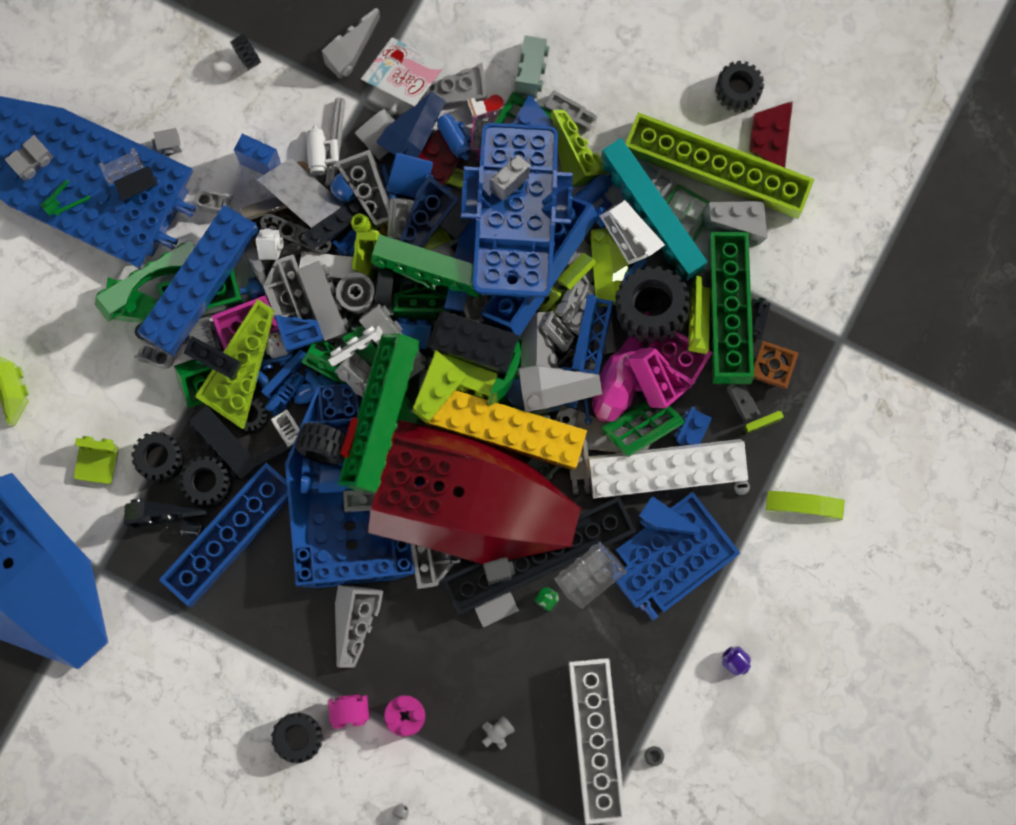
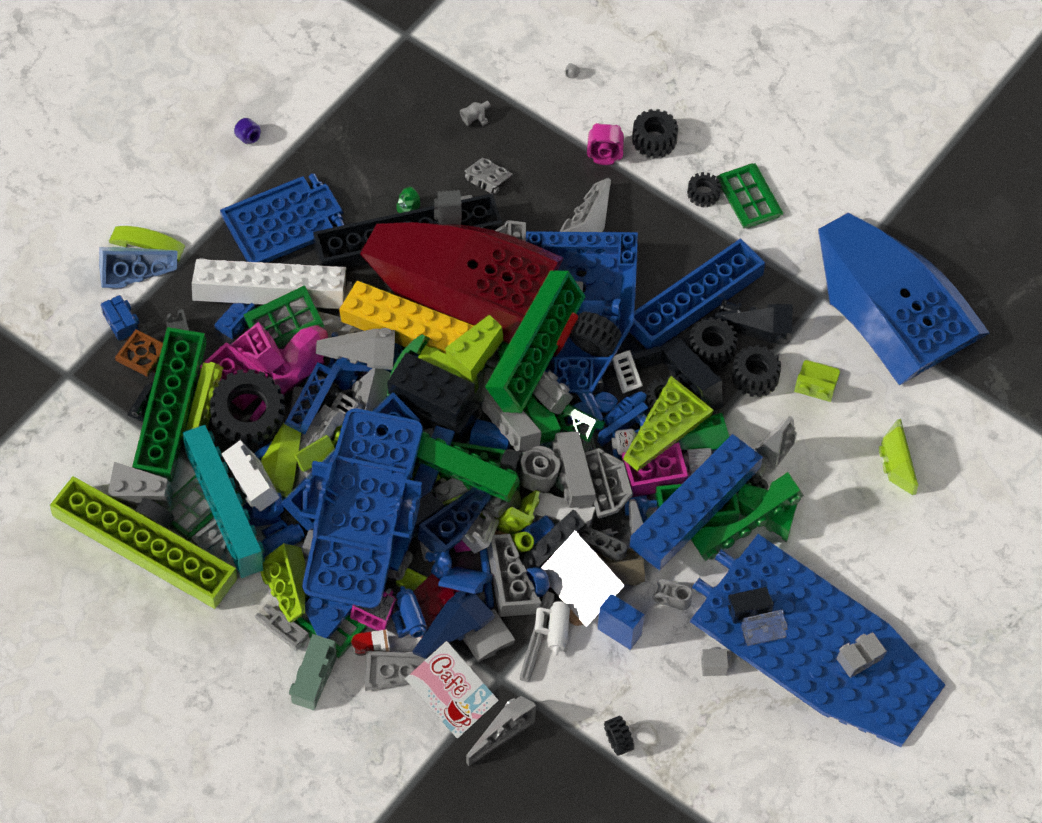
camera: 170 degrees left, 20 degrees down
(51, 204) = (839, 604): green plant -> none
(126, 369) = (778, 442): none -> light grey wedge
(186, 680) = (749, 195): none -> green piece
(213, 357) = (691, 431): black hinge -> none
(224, 673) = (706, 181): none -> black tyre
(269, 244) = (620, 528): white brick -> none
(298, 332) = (602, 438): blue wing -> none
(339, 354) = (544, 407): white wing -> none
(405, 727) = (555, 134): dark pink brick -> none
(469, 654) = (487, 175): none -> light grey hinge
(510, 177) = (363, 520): light grey brick -> none
(590, 575) = (364, 204): clear brick -> none
(597, 741) = (388, 90): white brick -> none
(654, 756) = (340, 76): dark grey plate -> none
(663, 518) = (282, 240): blue slope -> none
(714, 181) = (155, 512): none -> black tyre
(744, 73) = (94, 603): black tyre -> none
(763, 422) = (160, 311): lime tile -> none
(771, 133) = (77, 571): dark red wing -> none
(807, 407) = (119, 317): none -> blue brick
(818, 471) = (129, 265): none -> medium blue wedge

